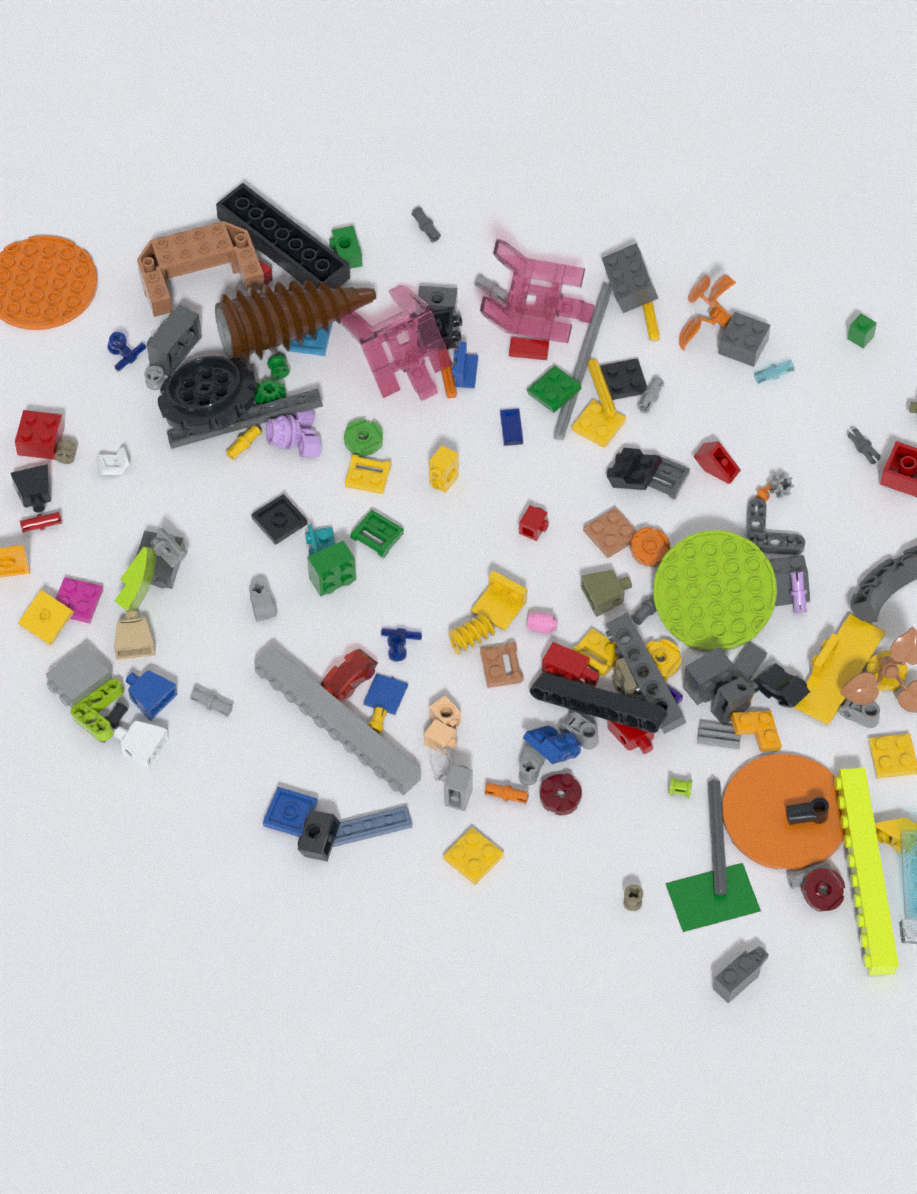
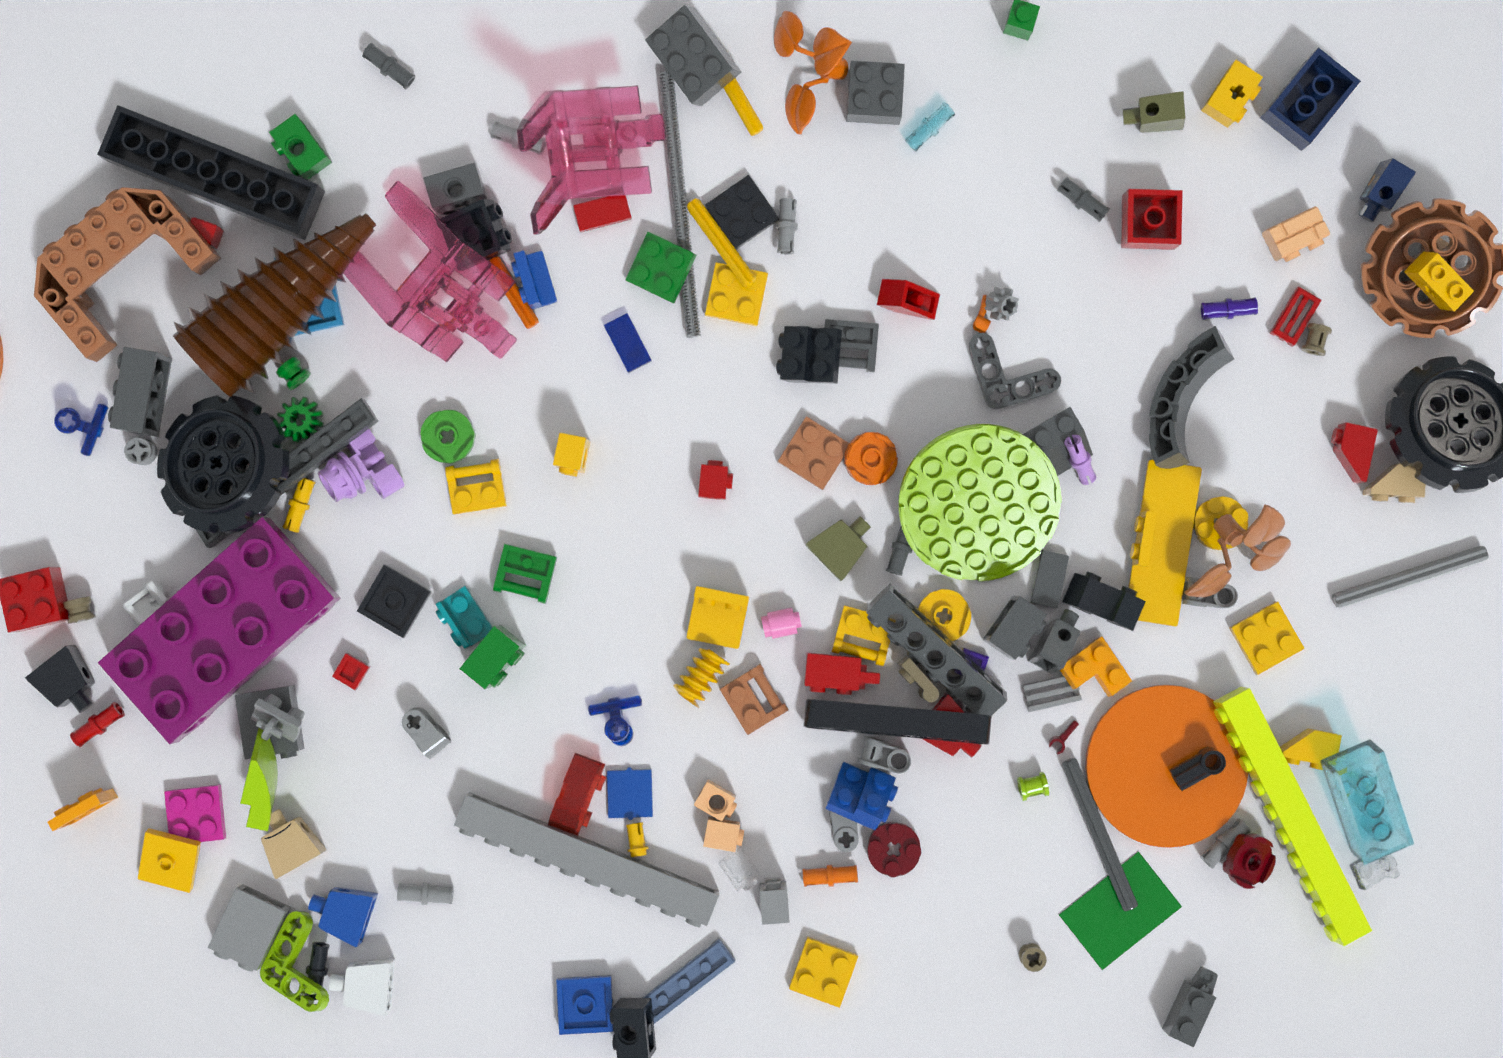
camera: 25 degrees left, 30 degrees up
(154, 490) = (219, 630): none -> magenta piece
(229, 550) = (351, 671): none -> red plate
(709, 764) = (1063, 737): none -> dark red hand

